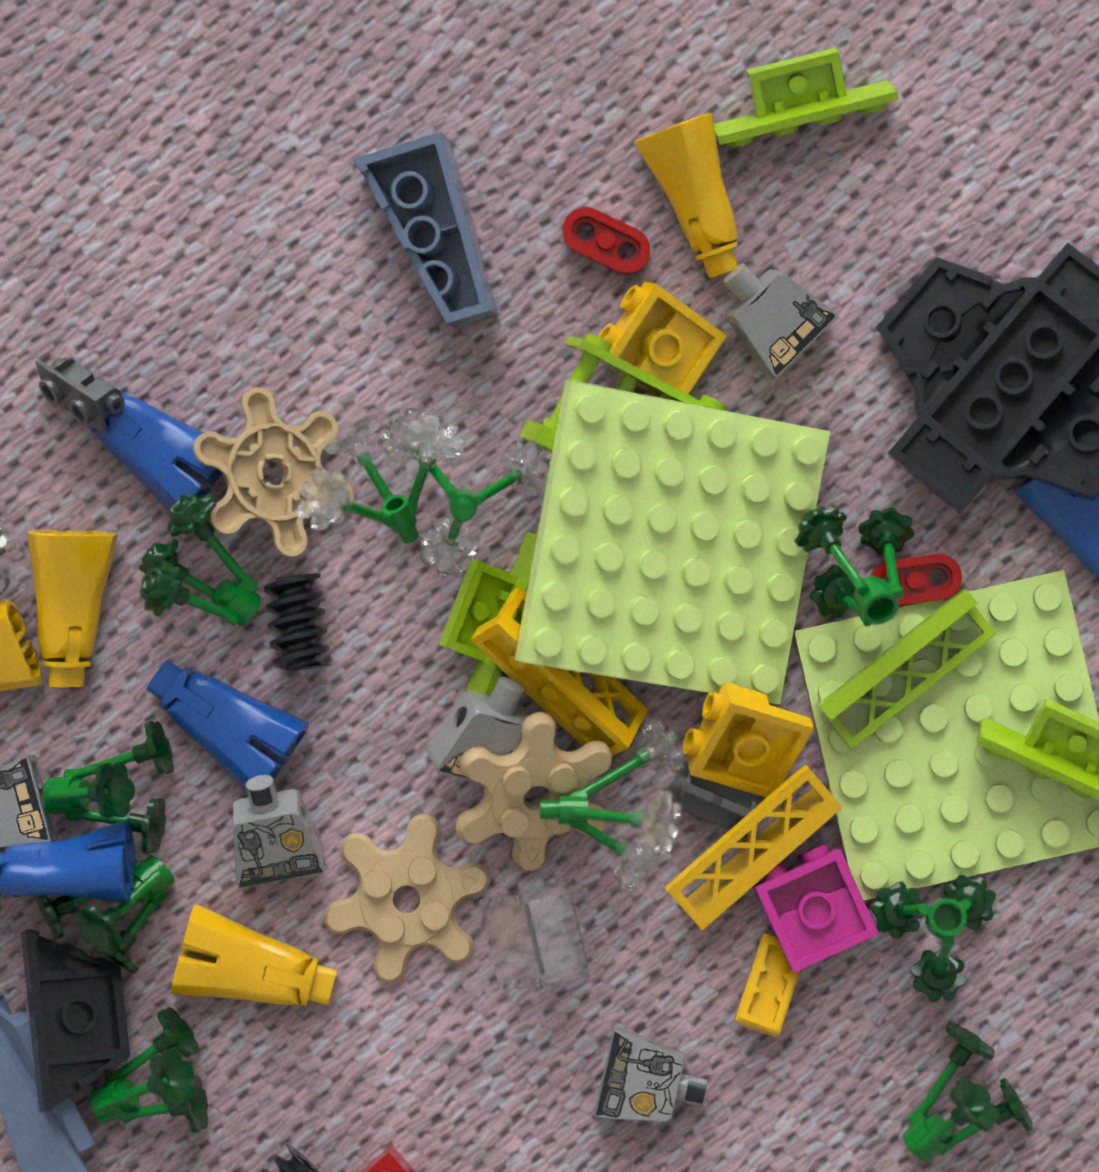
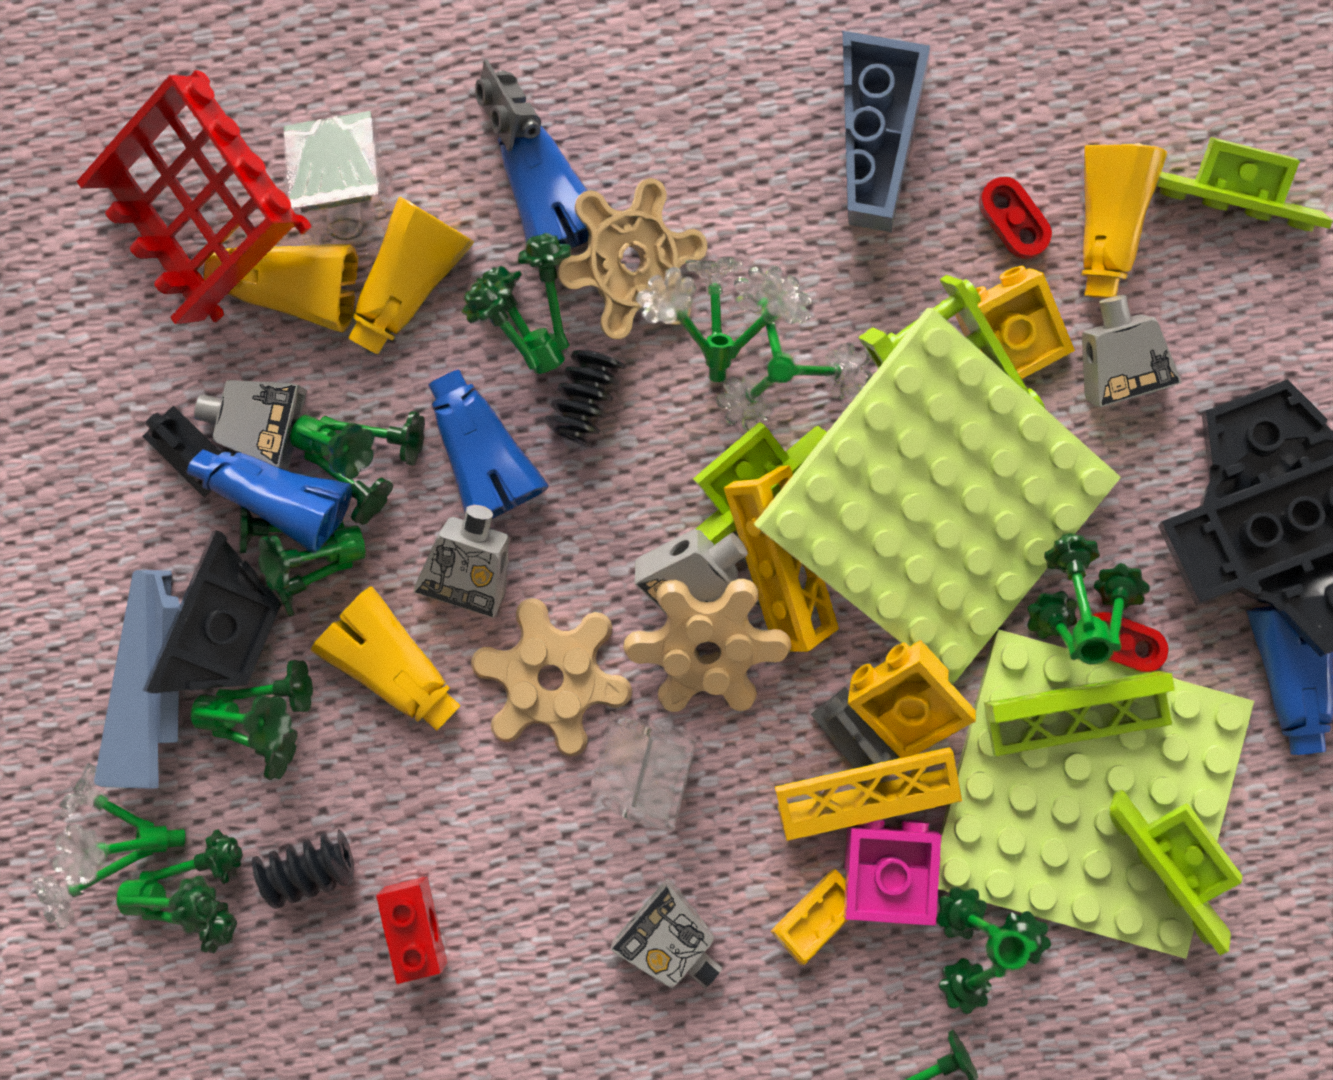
camera: 25 degrees right, 0 degrees up
(656, 821) = (802, 729): clear plant -> none

